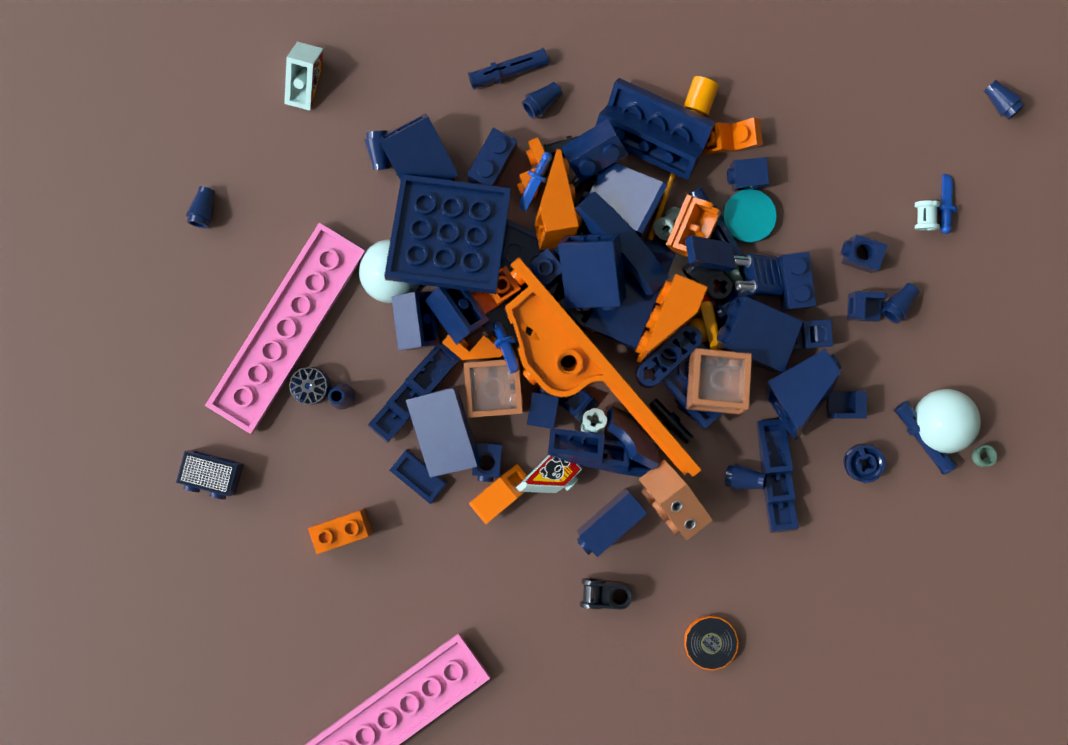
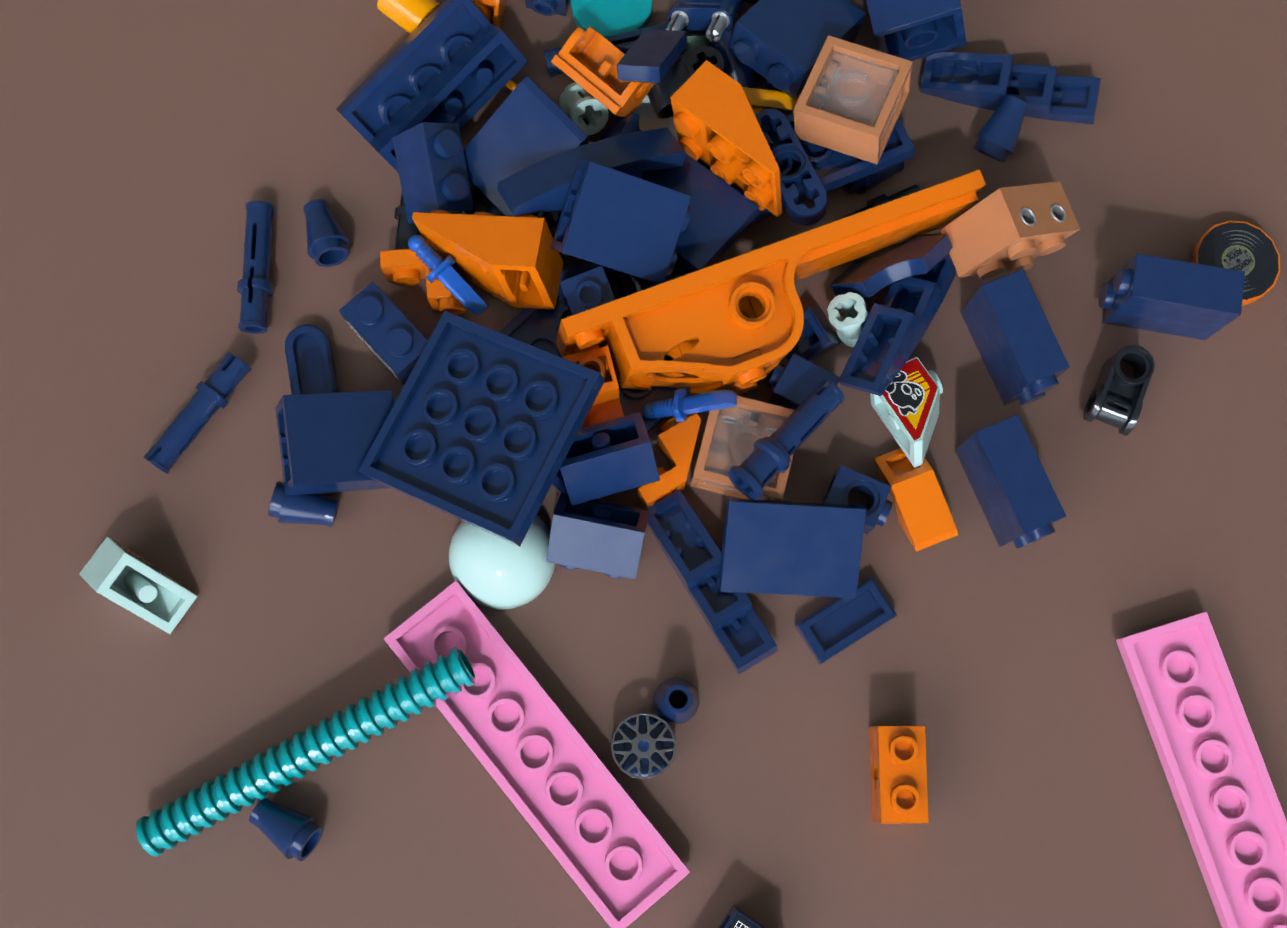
camera: 75 degrees left, 10 degrees down
(243, 203) = (304, 752): none -> teal piece
(412, 69) = (196, 414): none -> dark blue pin
(460, 123) = (310, 361): none -> dark blue tile
(488, 403) = (774, 452): none -> dark blue pin
(523, 545) = (1010, 483): none -> dark blue brick
(669, 607) = (1172, 297): none -> dark blue brick

